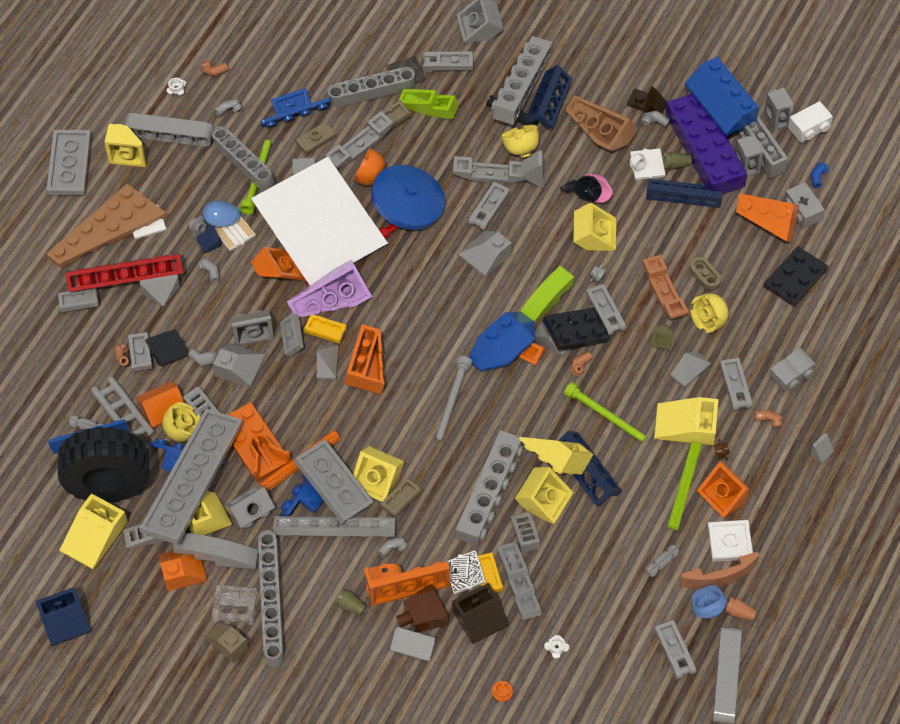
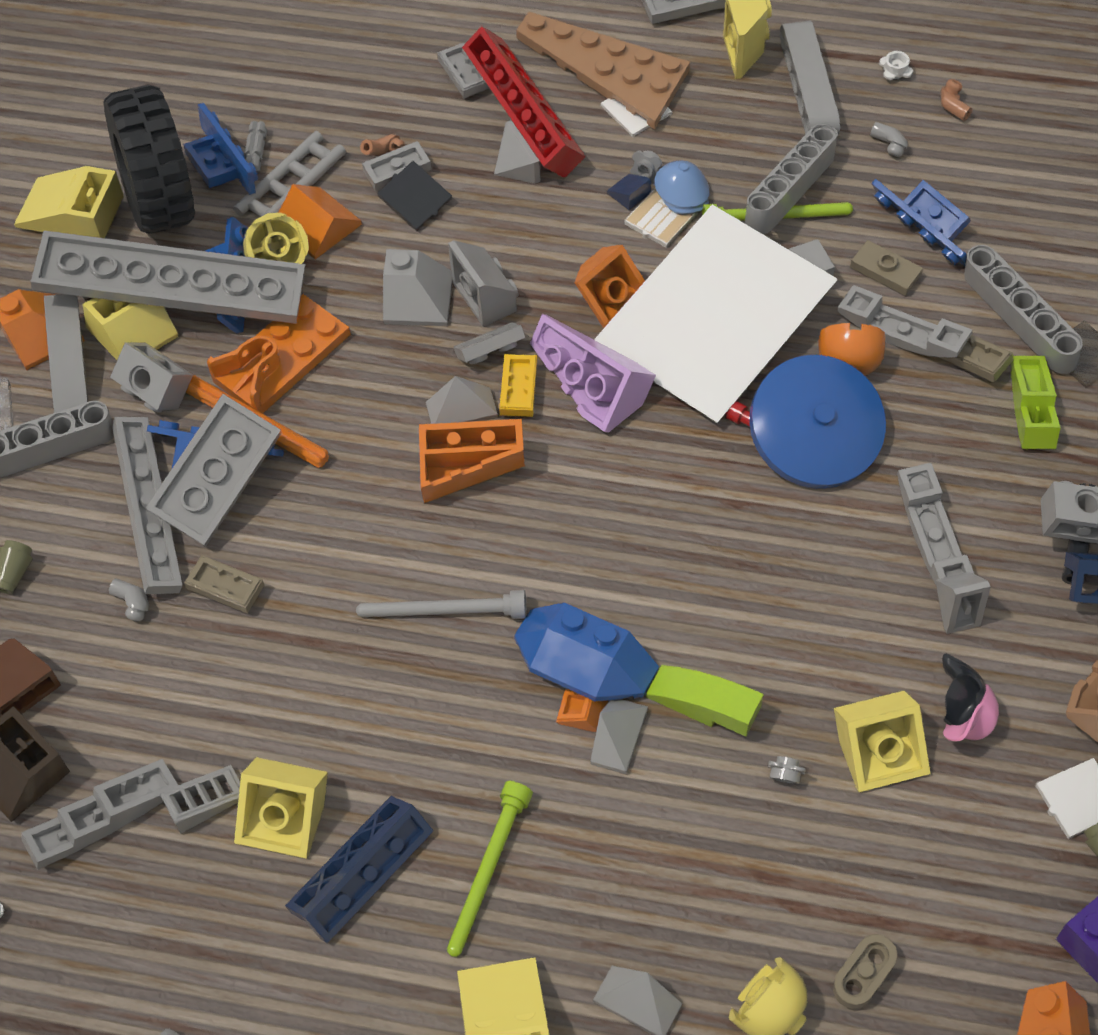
camera: 75 degrees right, 0 degrees up
(195, 398) = (332, 254): light grey slope -> none
(204, 358) = (413, 238): light grey arm -> none
(207, 264) = (579, 209): light grey arm -> none
(377, 472) = (261, 533): light yellow slope -> none
(395, 585) = (46, 608): orange plate -> none
(465, 572) = (101, 722): white piece -> none
(487, 252) = (760, 577): light grey slope -> none
(489, 206) = (860, 553): light grey plate -> none
(490, 572) = (109, 760): yellow tile -> none
(504, 444) = (184, 696): light grey brick -> none
(521, 141) = (1018, 559): light yellow cylinder -> none
(563, 456) = (354, 797): light yellow slope -> none
(576, 329) = (644, 764): black plate -> none
(579, 361) = (581, 792): nougat arm -> none
(605, 308) = (712, 807): light grey plate -> none
(637, 161) = (1069, 774): white plate -> none
(662, 337) = (685, 926): olive tile -> none
(663, 287) = (799, 903): nougat slope -> none
(682, 193) = (1033, 883): dark blue fence -> none

